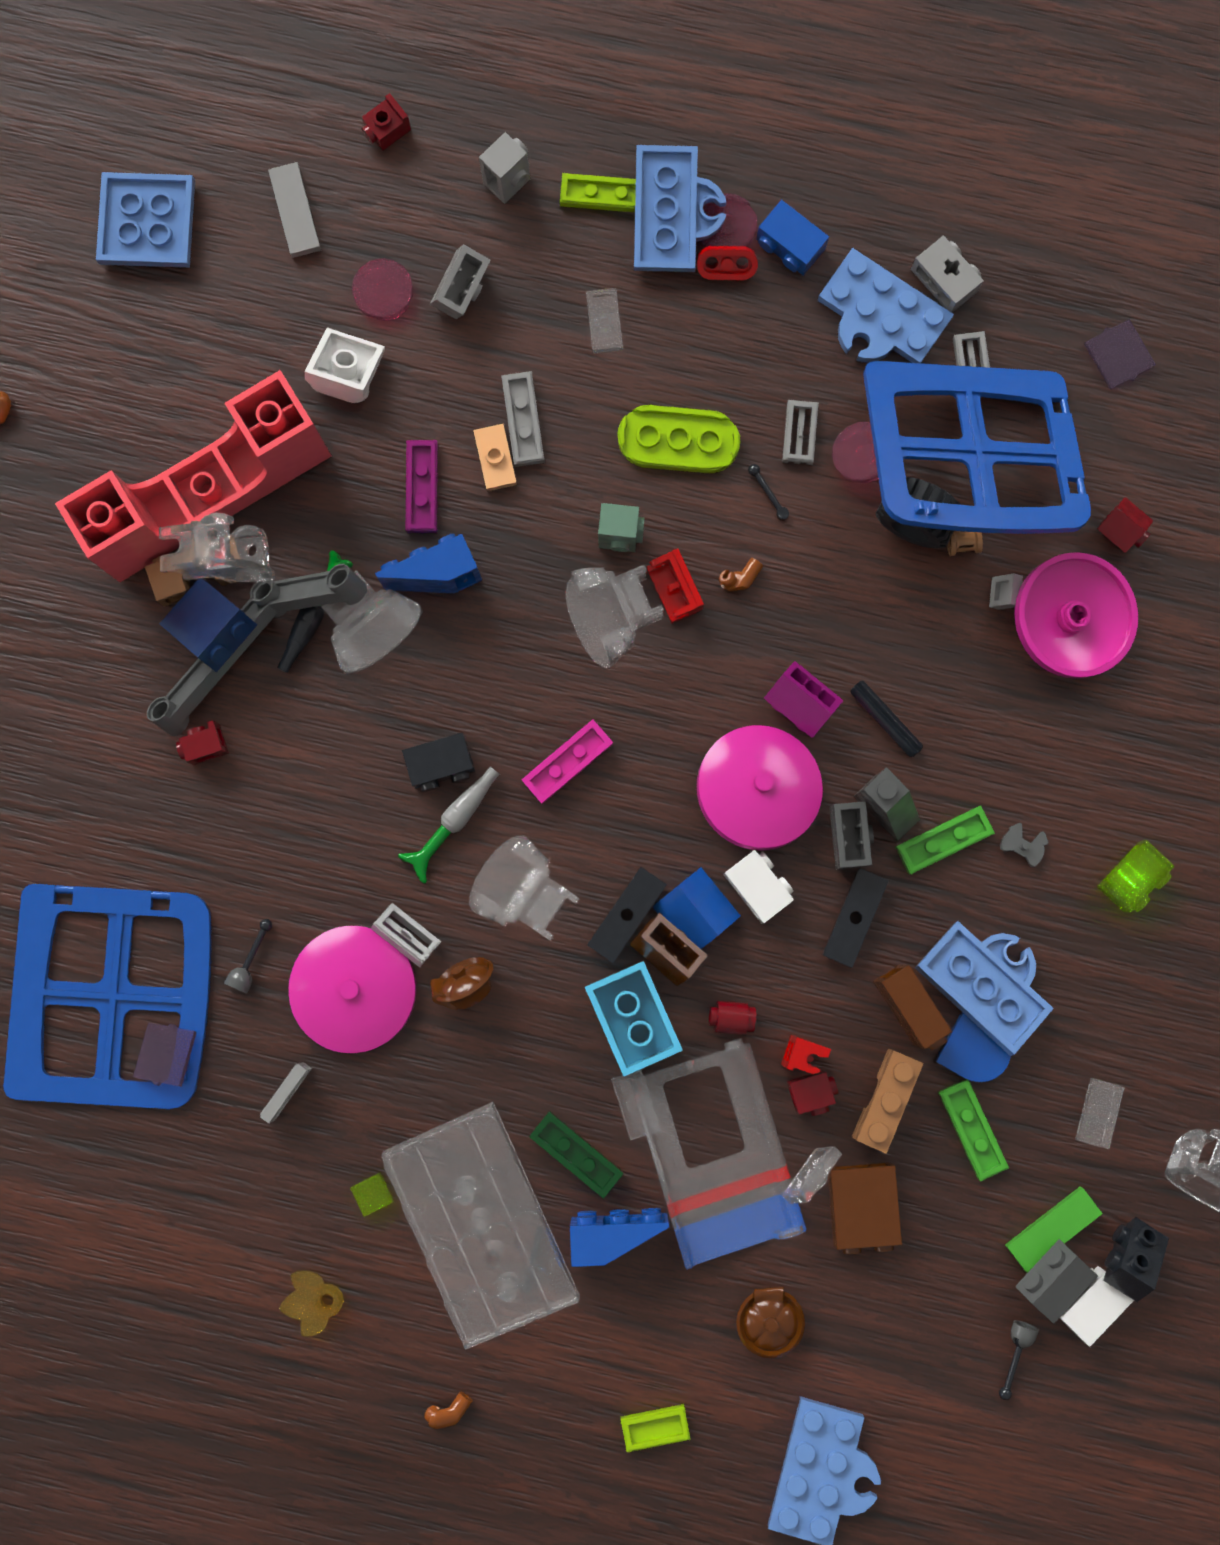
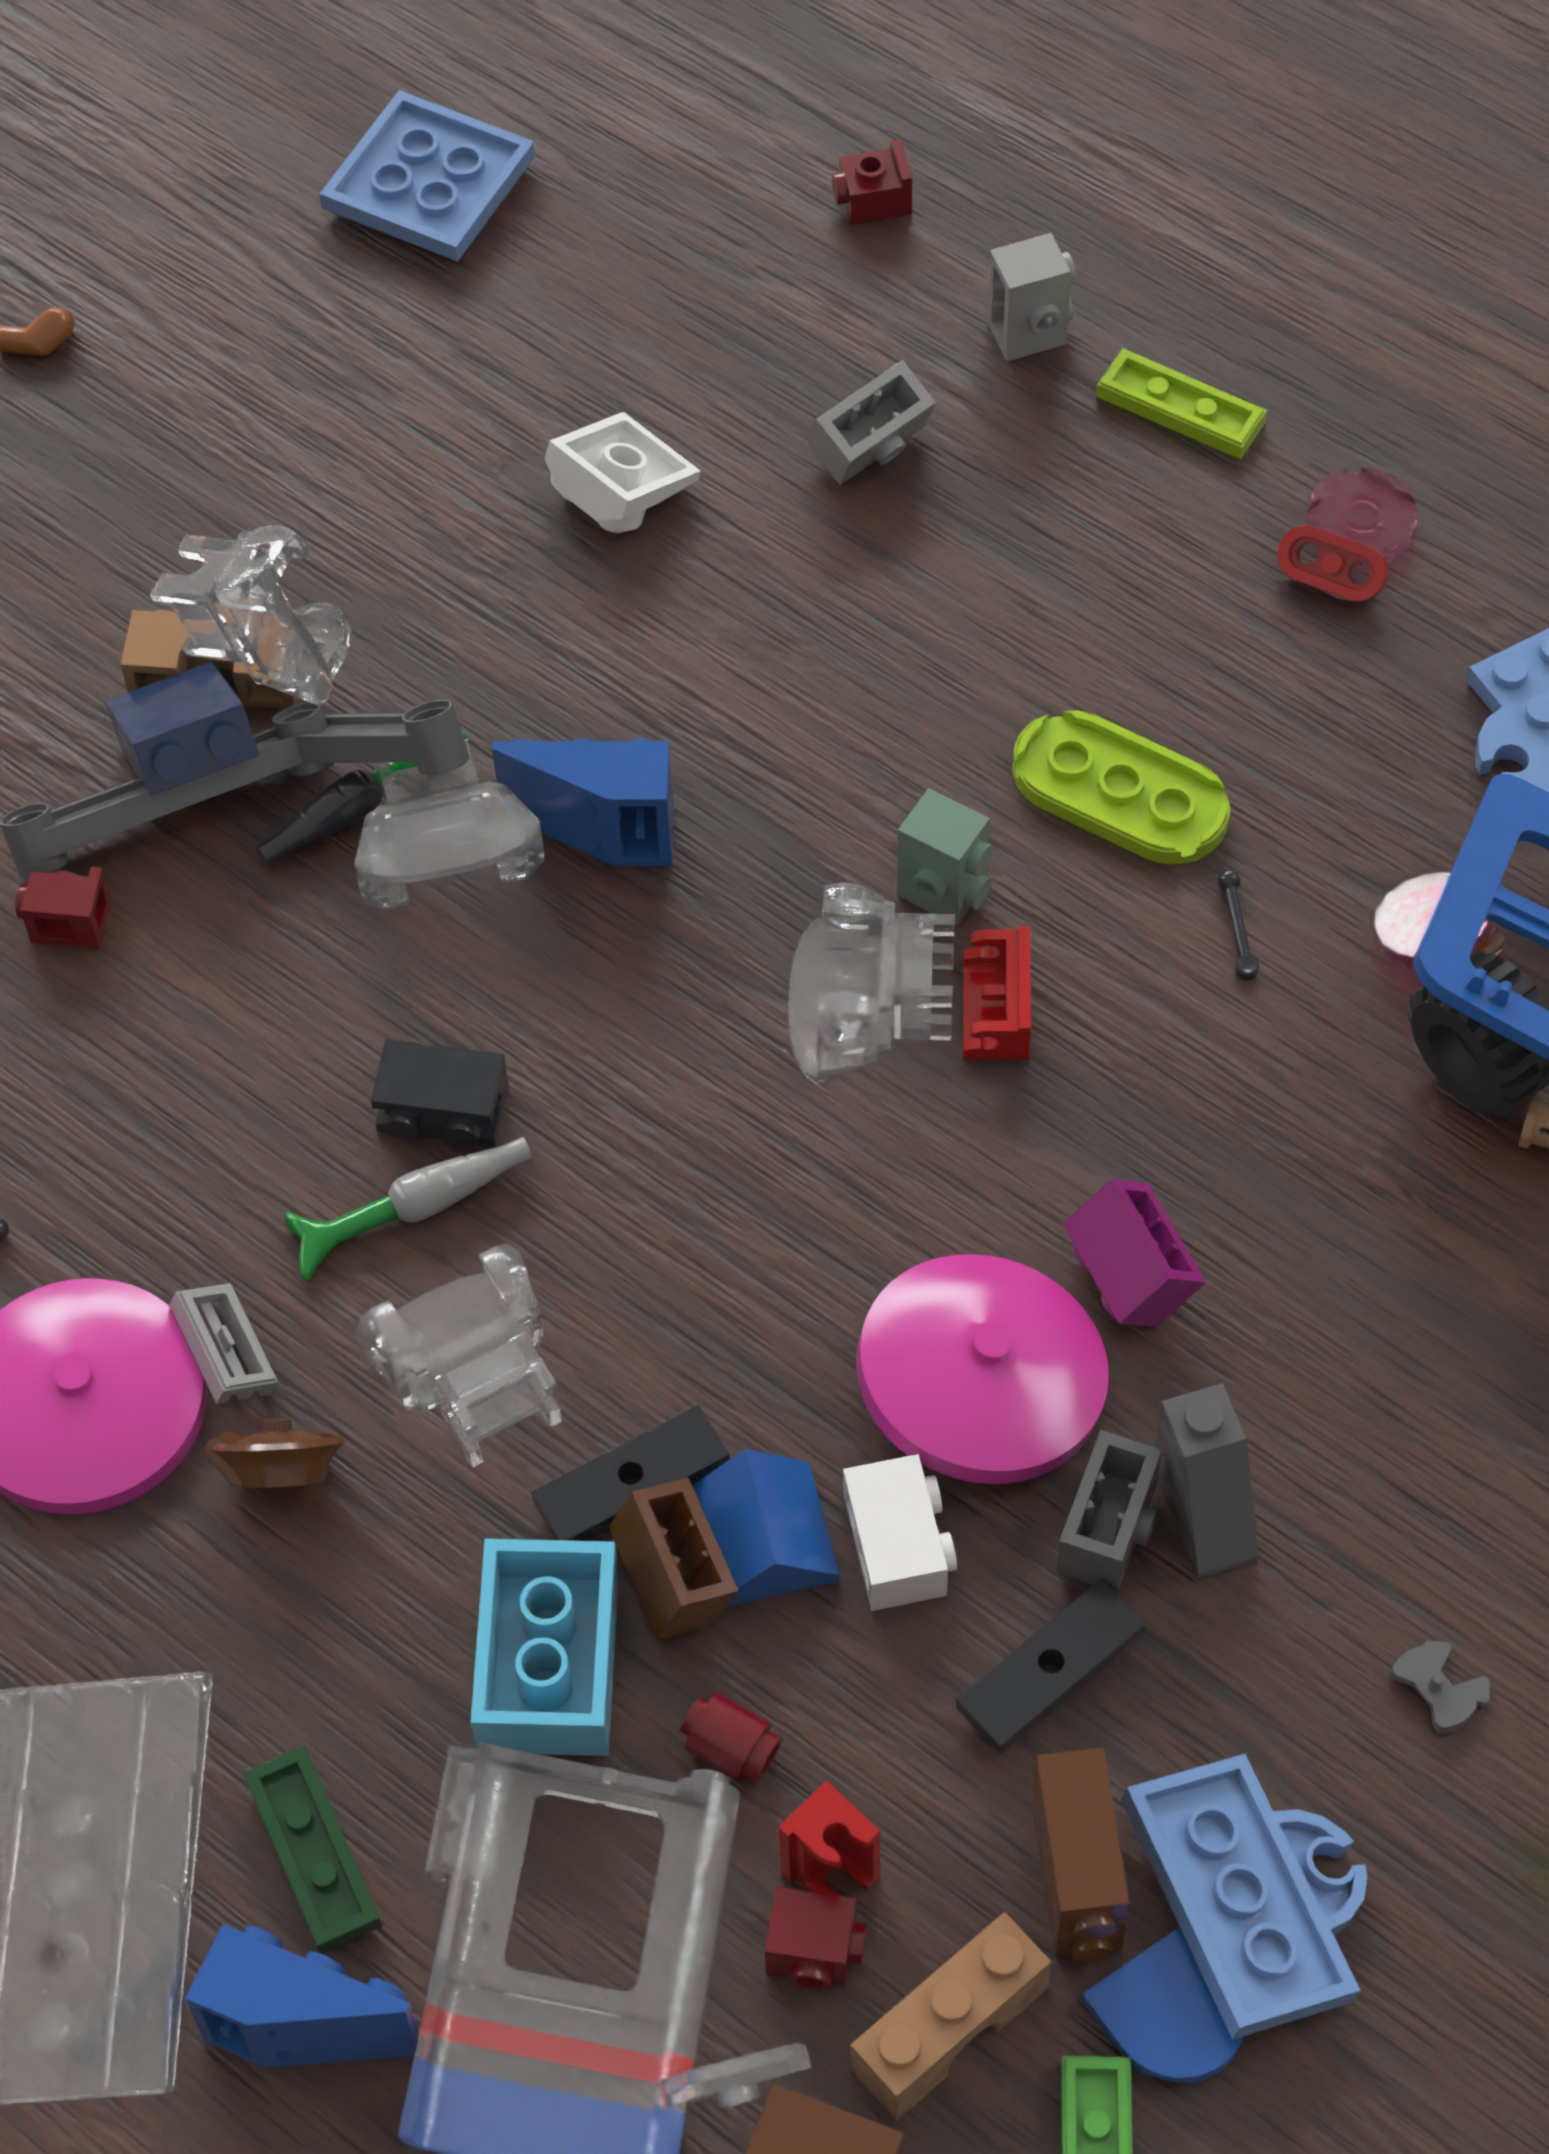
camera: 25 degrees right, 25 degrees down
(258, 454) = (413, 530): coral arch -> none
(294, 210) = (665, 247): light grey tile -> none
(382, 289) = (743, 398): clear pink tile -> none
(421, 486) = (651, 681): magenta tile -> none
(495, 457) = (793, 694): light nougat plate -> none
(523, 419) = (870, 659): light grey tile -> none
(567, 761) = (661, 1188): dark pink plate -> none
(604, 320) = (1082, 569): clear plate -> none
(671, 208) = (1276, 453): medium blue plate -> none
(741, 579) = (1119, 1035): dark orange arm -> none
(791, 238) = (1463, 569): blue brick -> none
(797, 458) = (1319, 890): light grey tile -> none
(886, 719) = (1276, 1360): black axle -> none
(944, 840) = (1289, 1611): bright green tile -> none

